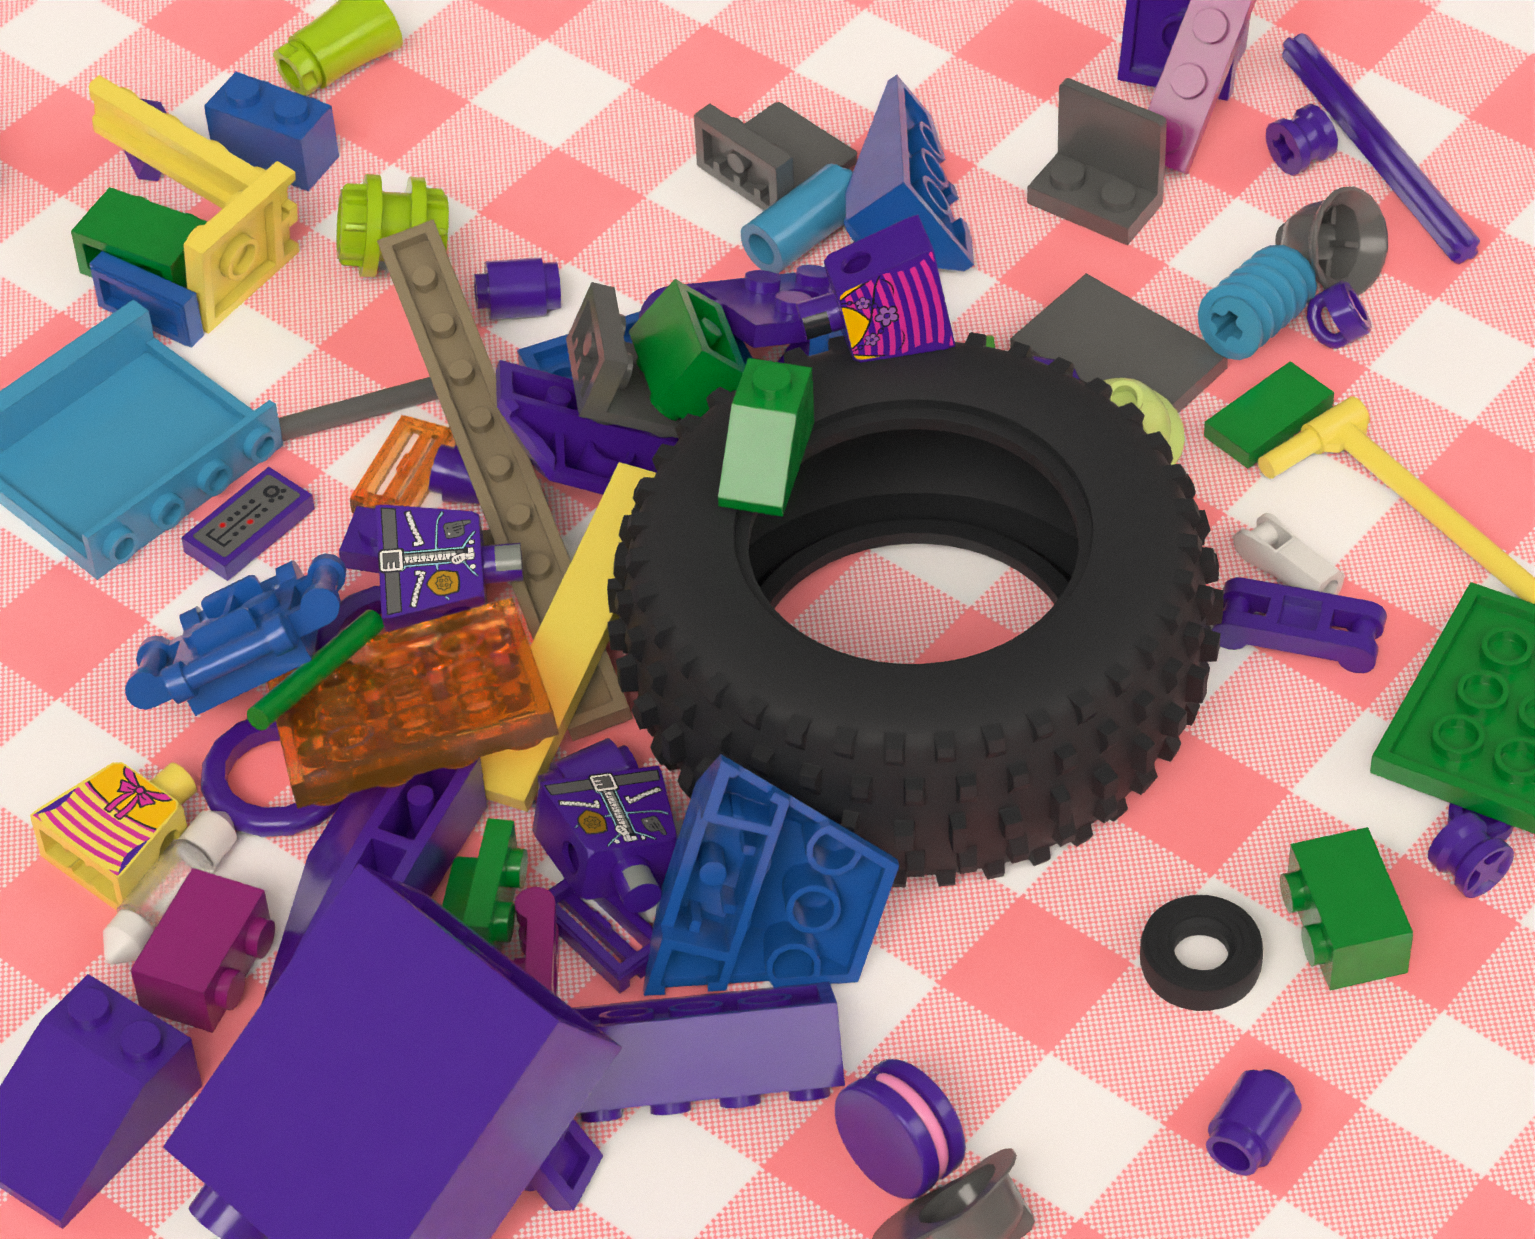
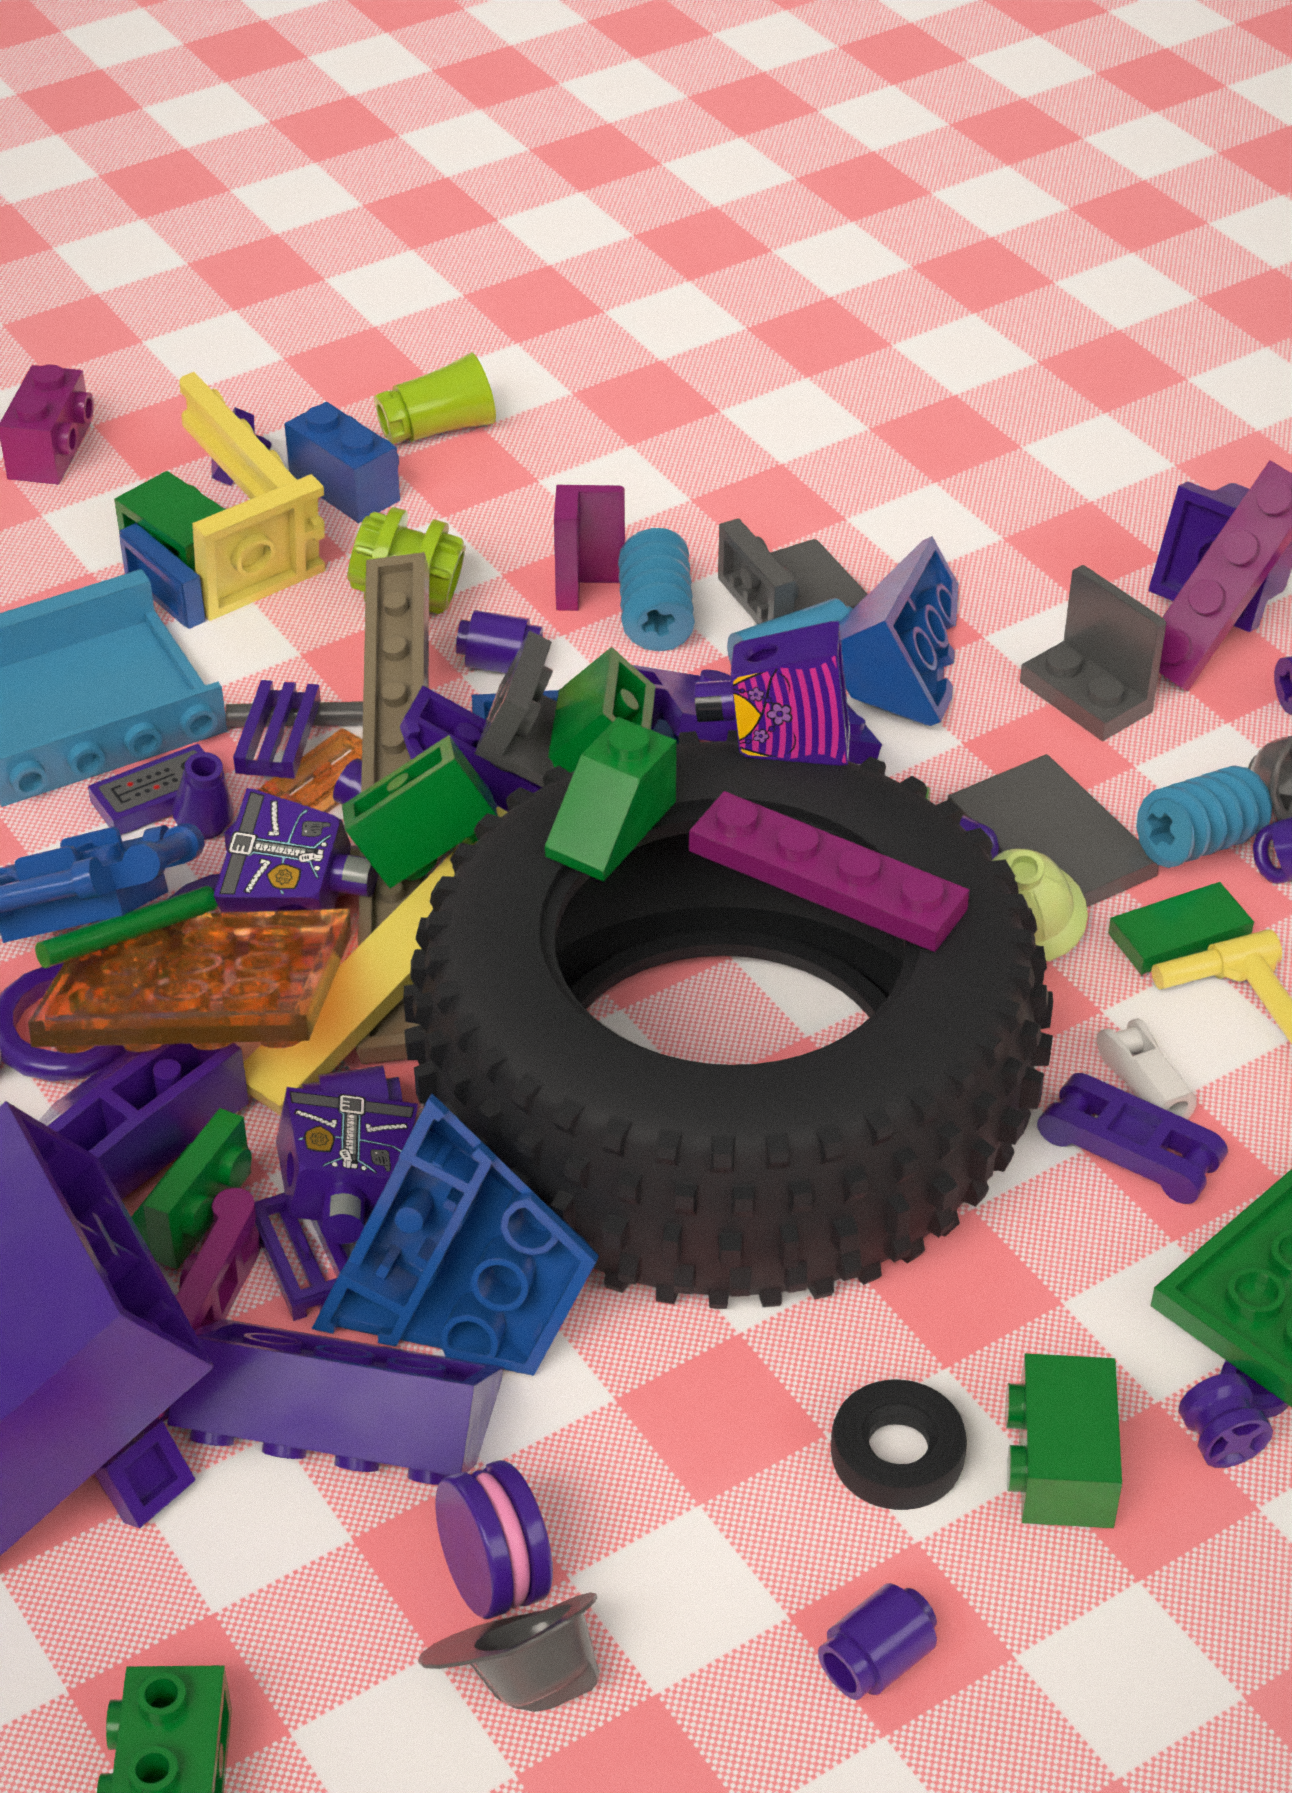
camera: 15 degrees right, 5 degrees down
(306, 521) = (203, 795): none -> dark purple cone
(339, 399) = (283, 701): none -> dark purple tile
(555, 488) = (418, 813): none -> green brick
(564, 160) = (586, 538): none -> magenta panel
(648, 194) = (656, 589): none -> dark azure piece
(983, 454) = (829, 871): none -> magenta plate

